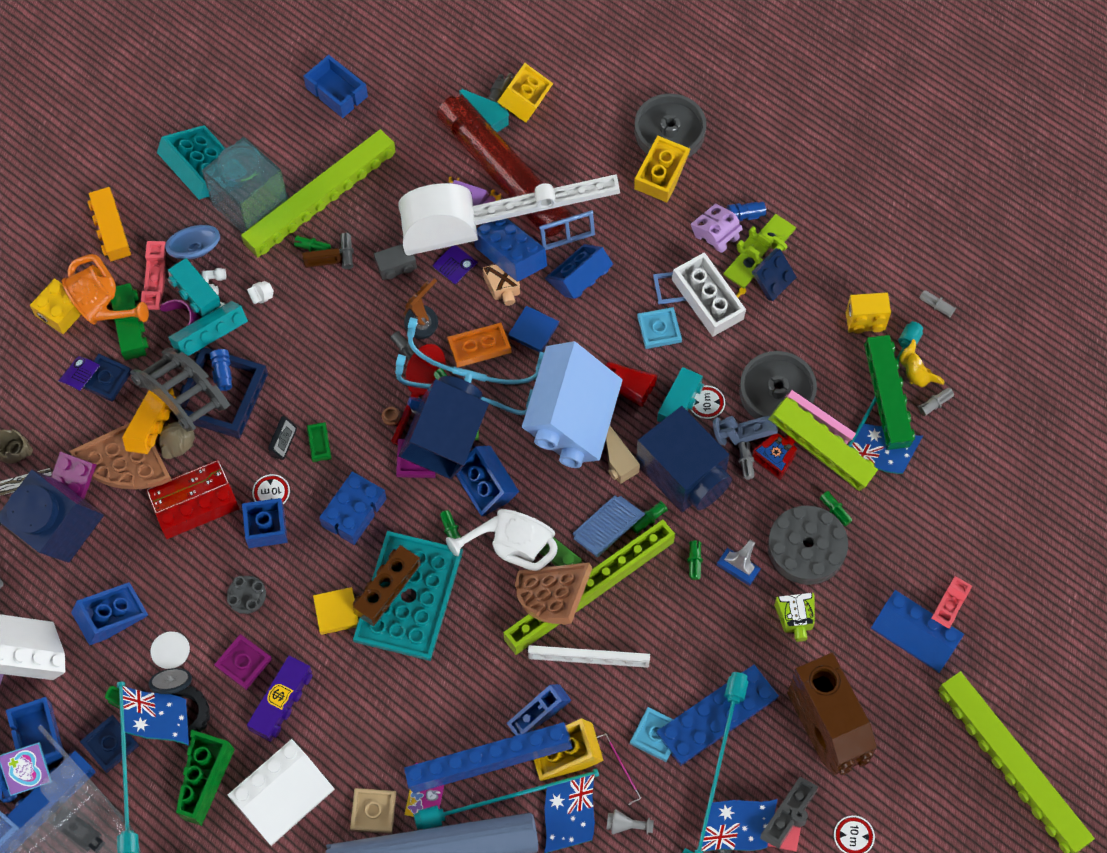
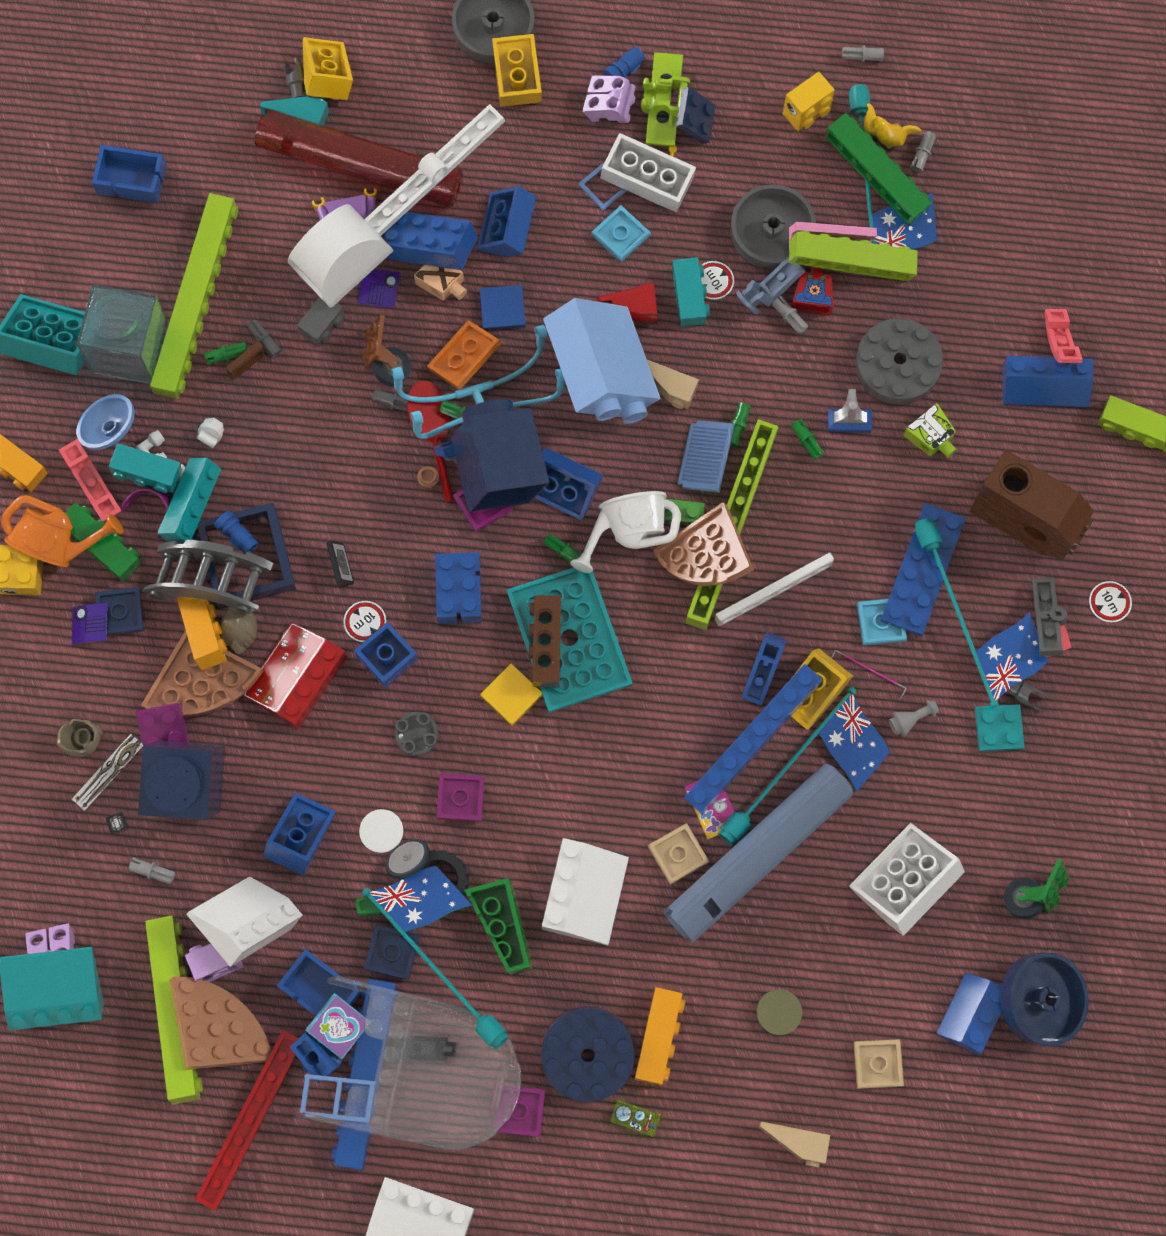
camera: 35 degrees left, 10 degrees up
(279, 699) = (520, 808): dark purple brick -> none
(319, 442) = (376, 545): green tile -> none
(568, 239) = (472, 195): medium blue window -> none
(684, 461) = (741, 351): dark blue container -> none
(835, 508) = (900, 310): green axle -> none

